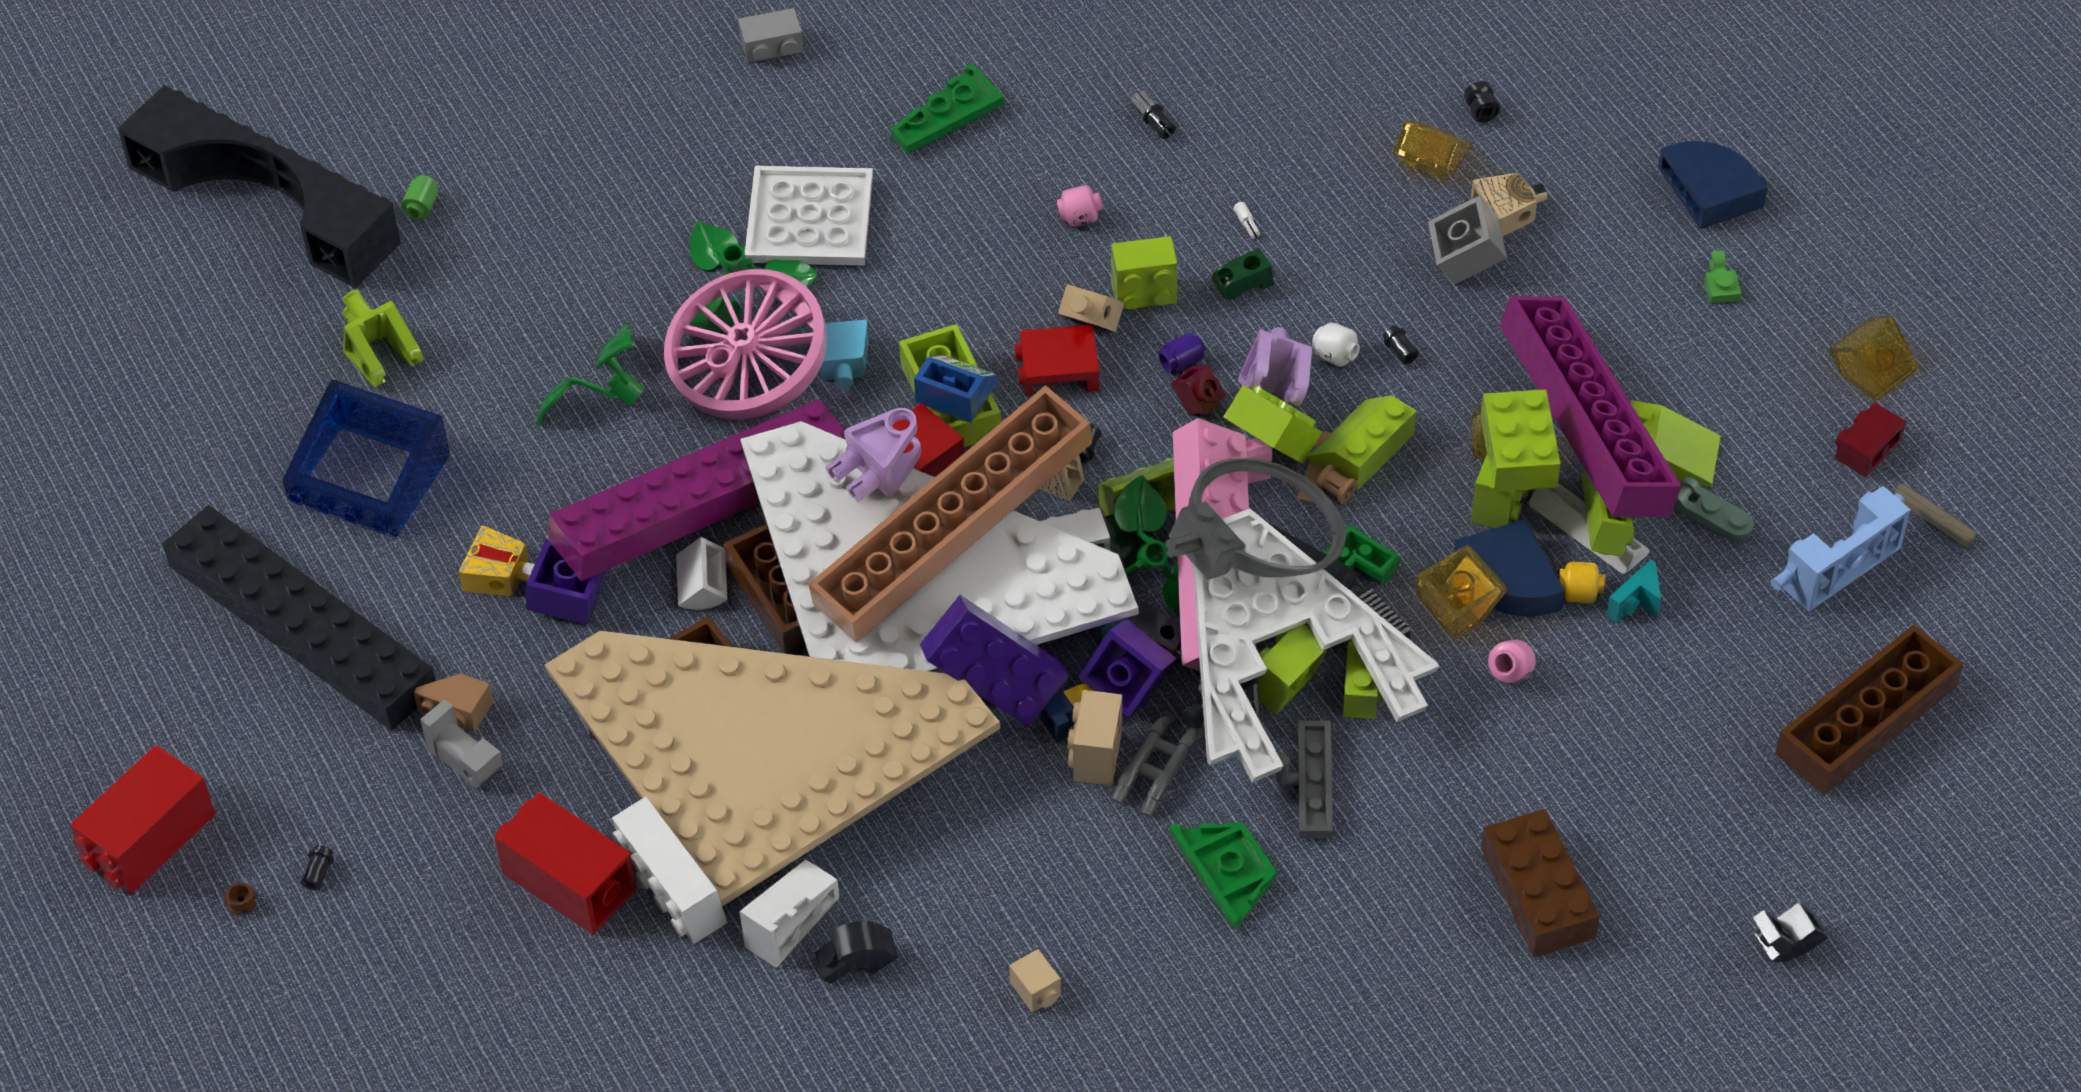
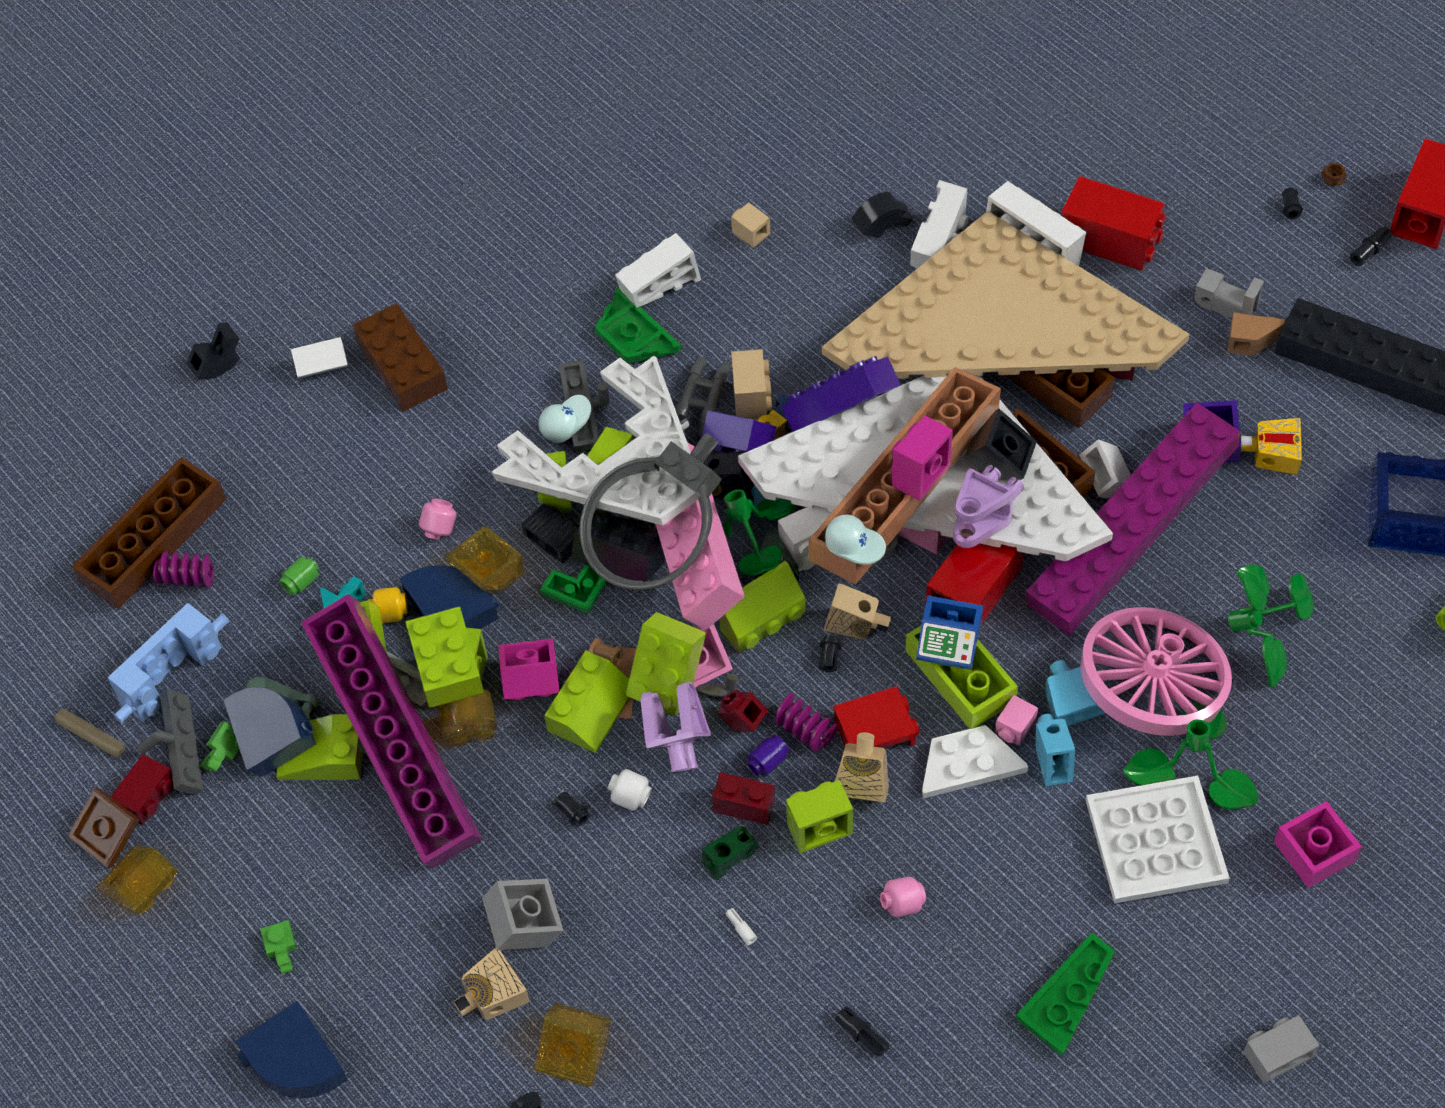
camera: 170 degrees right, 5 degrees up
(249, 790) = (1370, 246): none -> black axle
(657, 172) = (1317, 844): none -> dark pink brick
(829, 532) = (1002, 445): none -> black slope
(880, 295) = (1051, 740): none -> medium azure torso
(904, 328) = (1016, 720): none -> bright pink brick
(938, 464) = (921, 457): none -> dark pink brick
(981, 319) = (969, 760): none -> white wing
(1040, 407) = (853, 541): none -> light aqua cap
(1132, 372) = (803, 724): none -> magenta piece
(1176, 913) = (658, 271): none -> white wedge
(1217, 315) = (743, 798): none -> dark red brick
(1337, 753) = (563, 420): none -> light aqua cap
(1426, 463) = (528, 669): none -> dark pink brick
(1646, 907) = (319, 357): none -> white brick
(1685, 634) = (299, 575): none -> bright green brick
(1726, 461) = (268, 728): none -> brick
(1778, 470) = (223, 746): none -> bright green plate
(1823, 661) = (184, 571): none -> magenta piece
(1828, 478) = (181, 742): none -> dark grey plate
(1912, 404) = (103, 827): none -> reddish brown tile

